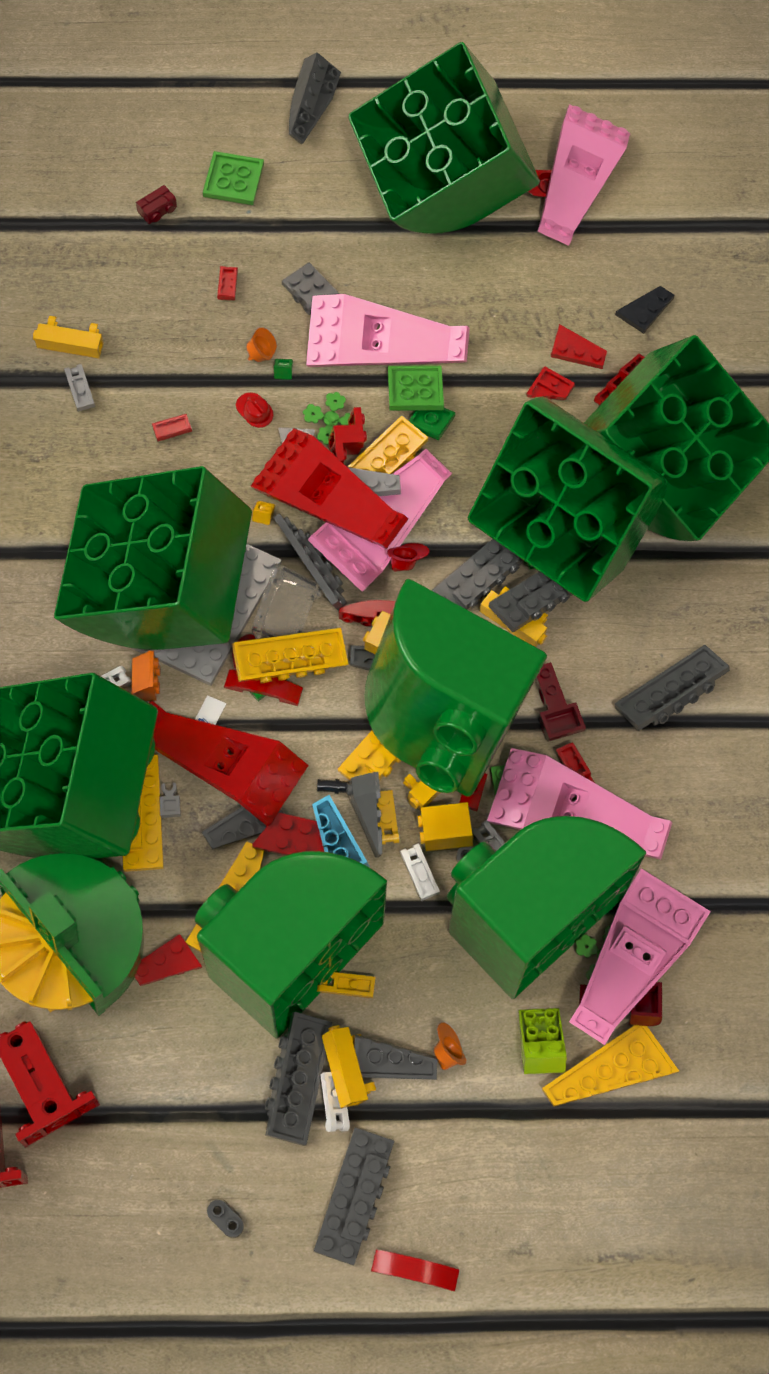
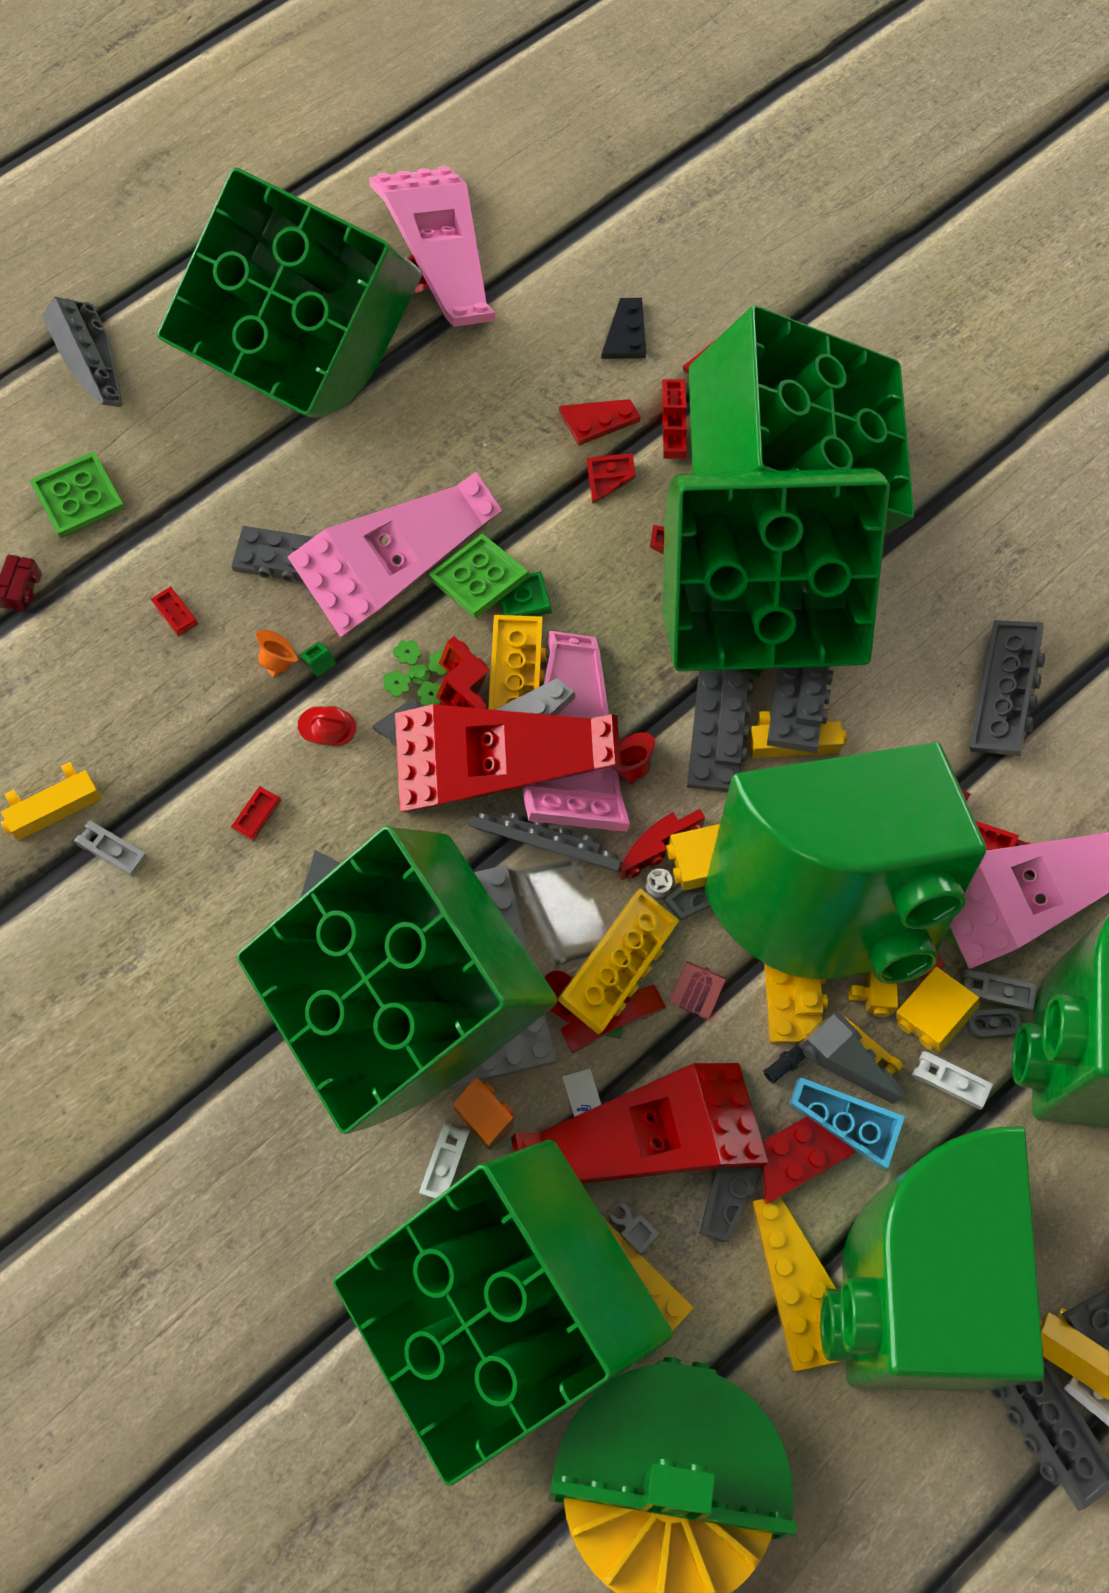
camera: 40 degrees left, 0 degrees up
(166, 961) = (796, 1406): red wing -> none
(263, 512) = (439, 823): yellow slope -> none
(324, 710) = (697, 990): none -> clear pink piece
(358, 632) = (660, 878): none -> white wheel

